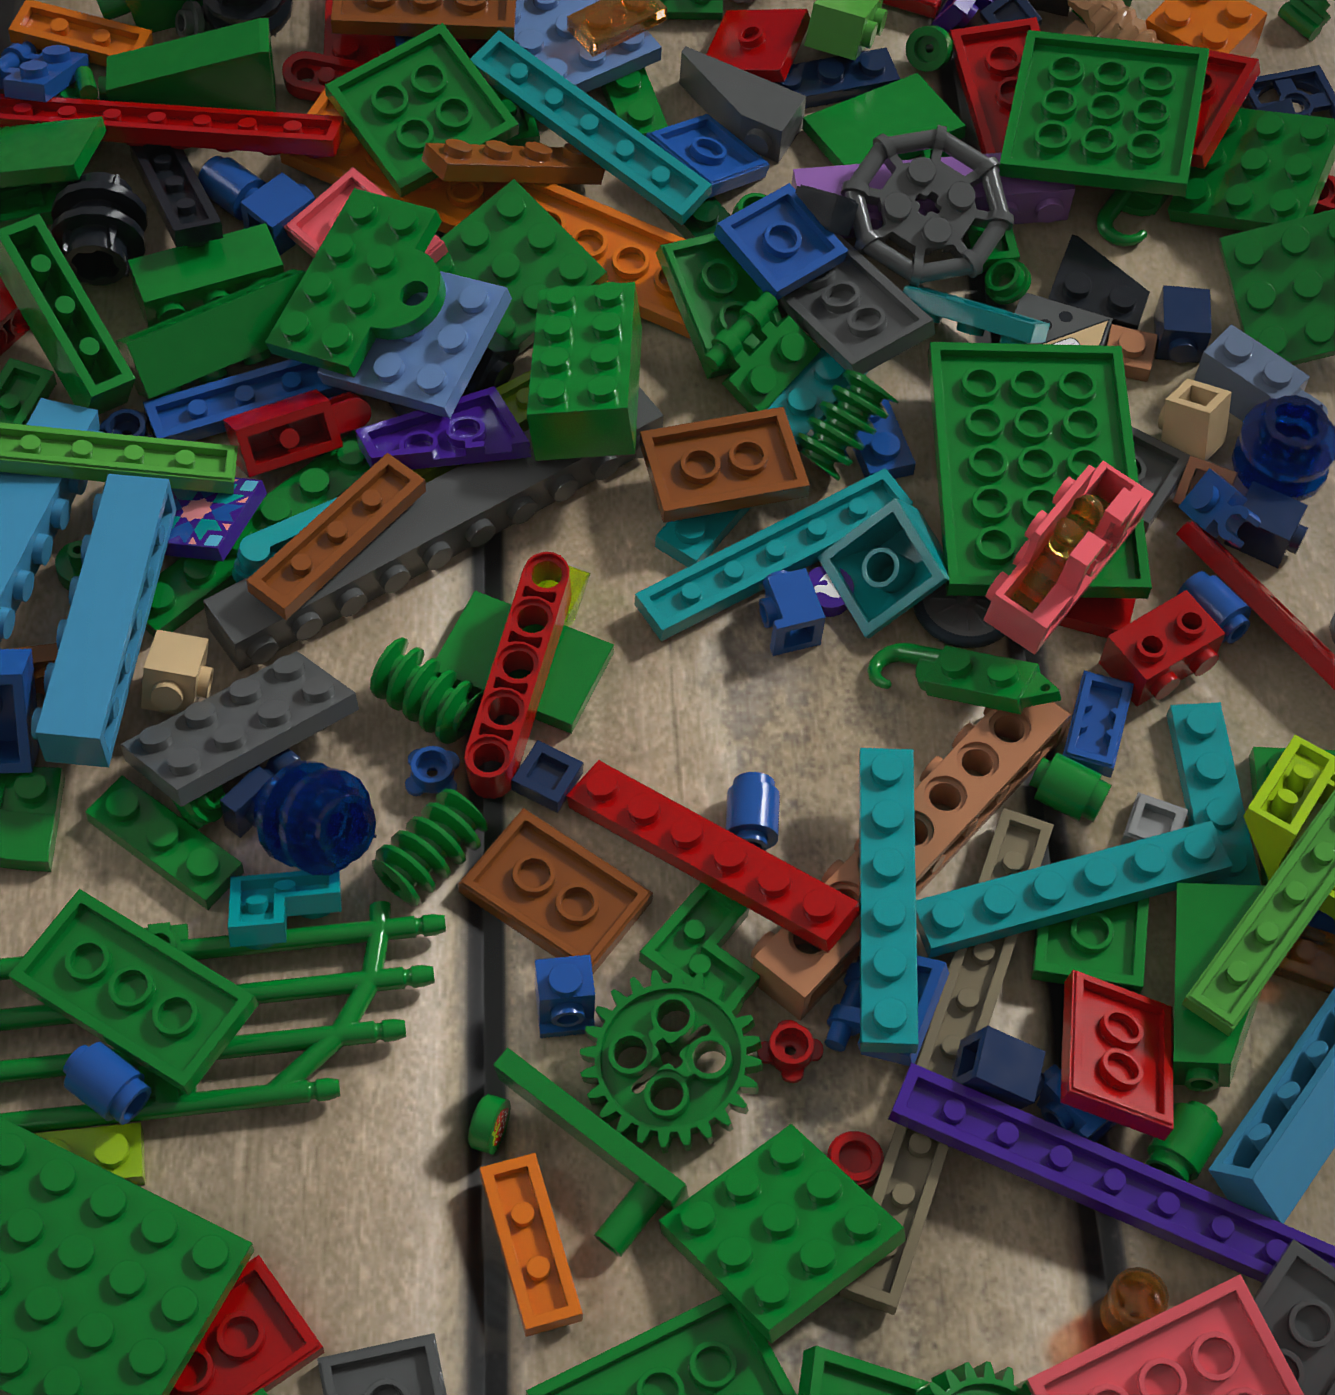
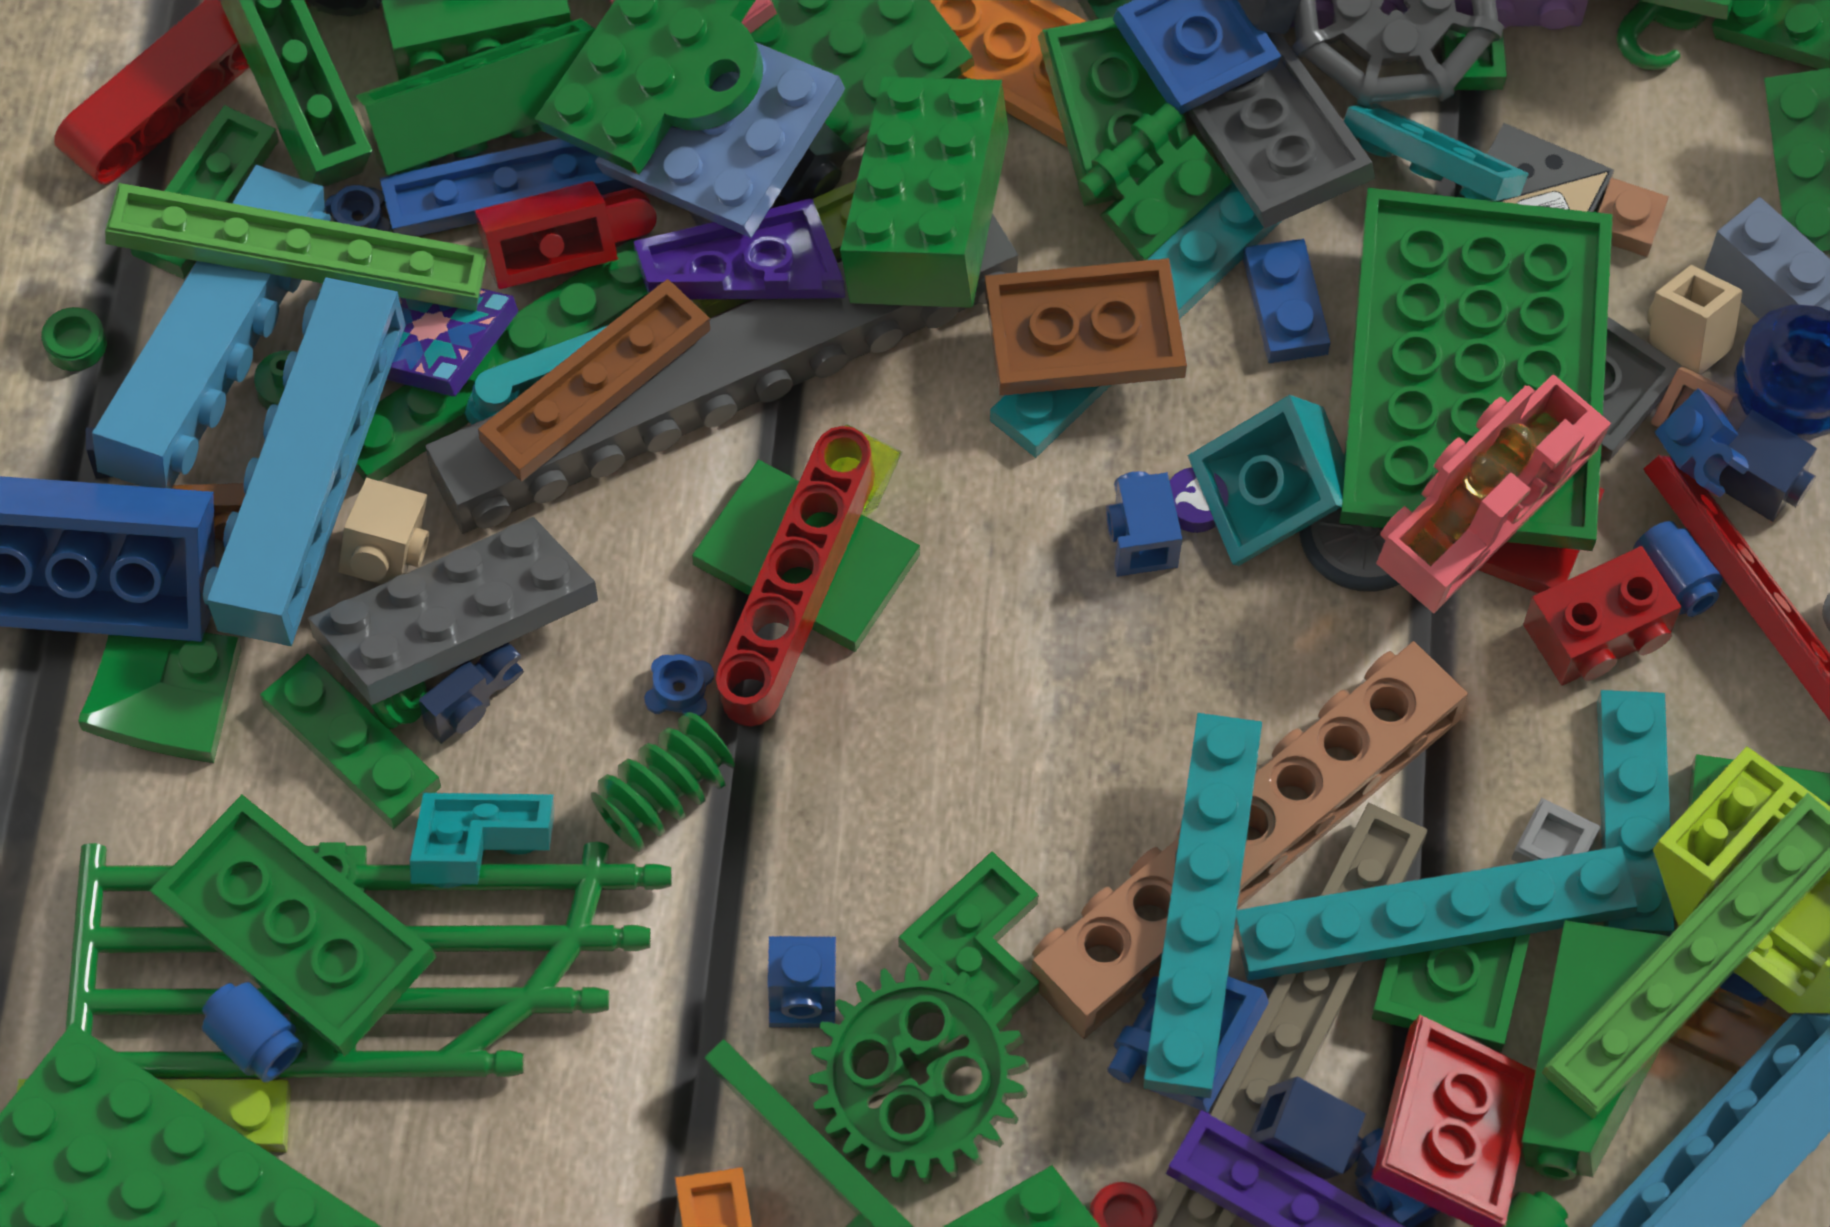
camera: 10 degrees right, 5 degrees up
(314, 817) = (528, 733): clear blue piece -> none
(423, 694) = (677, 587): green piece -> none
(489, 1123) = (693, 1126): green tile -> none
(547, 776) = (817, 705): dark blue plate -> none
(555, 891) = (809, 850): dark orange tile -> none
(714, 856) = (1002, 827): red plate -> none
(741, 568) = (1140, 440): teal plate -> none
(754, 809) = (1059, 777): blue brick -> none
(790, 1035) = (1069, 1057): red plate -> none
(844, 422) = (1243, 286): green piece -> none
(969, 676) = (1349, 631): green plate -> none
(1007, 281) = (1486, 107): green plate -> none
(1069, 787) = (1456, 784): green brick -> none
(1098, 285) = (1603, 123): black wing -> none
(1098, 722) = (1504, 705): blue plate -> none
(1182, 324) = (1702, 185): dark blue brick -> none

